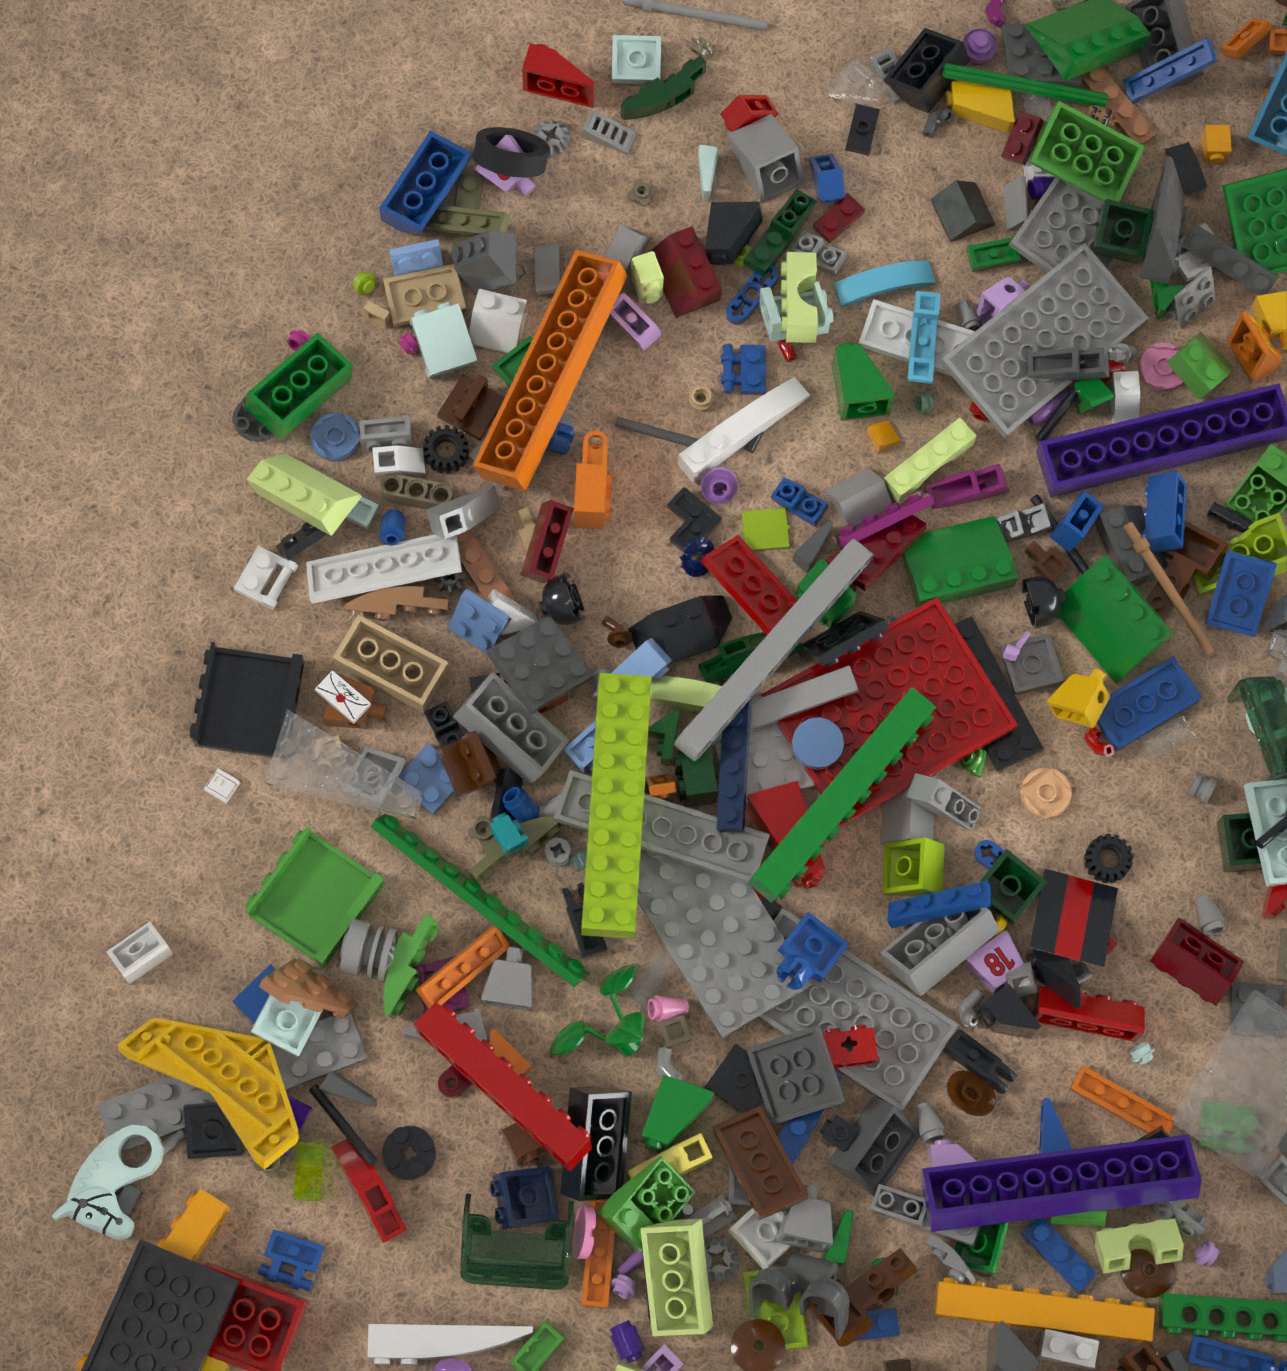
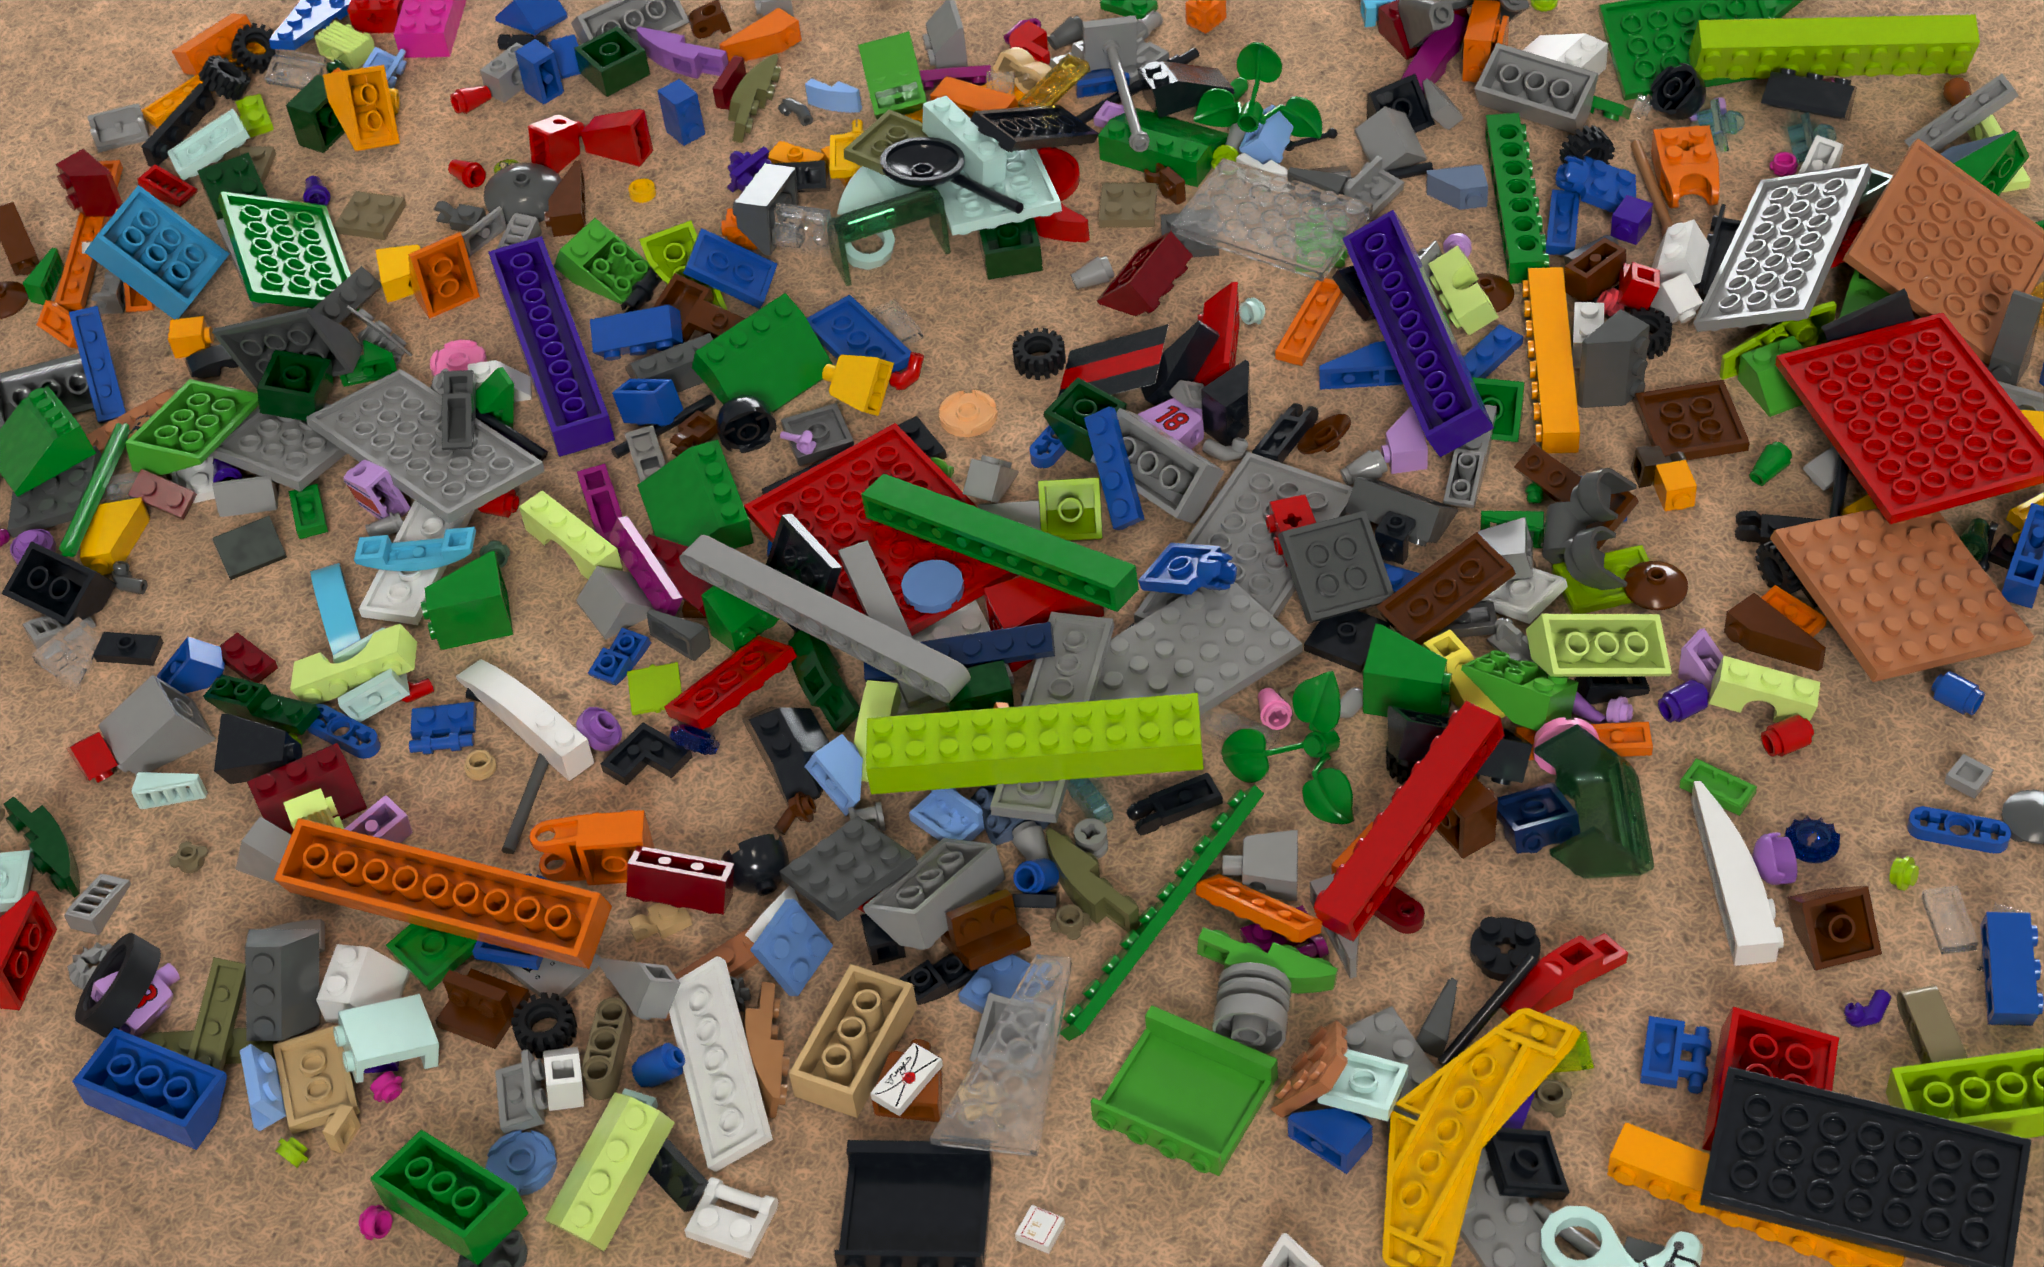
camera: 85 degrees left, 25 degrees down
(508, 834) = (1080, 869): teal brick -> none
(828, 257) = (280, 676): light grey slope -> none
(882, 435) = (536, 591): light orange slope -> none
(957, 1267) = (1519, 419): light grey slope -> none
(1141, 546) = (682, 334): medium nougat bar -> none
(1200, 365) = (462, 323): bright green slope -> none
(1202, 787) = (951, 288): light grey wheel -> none

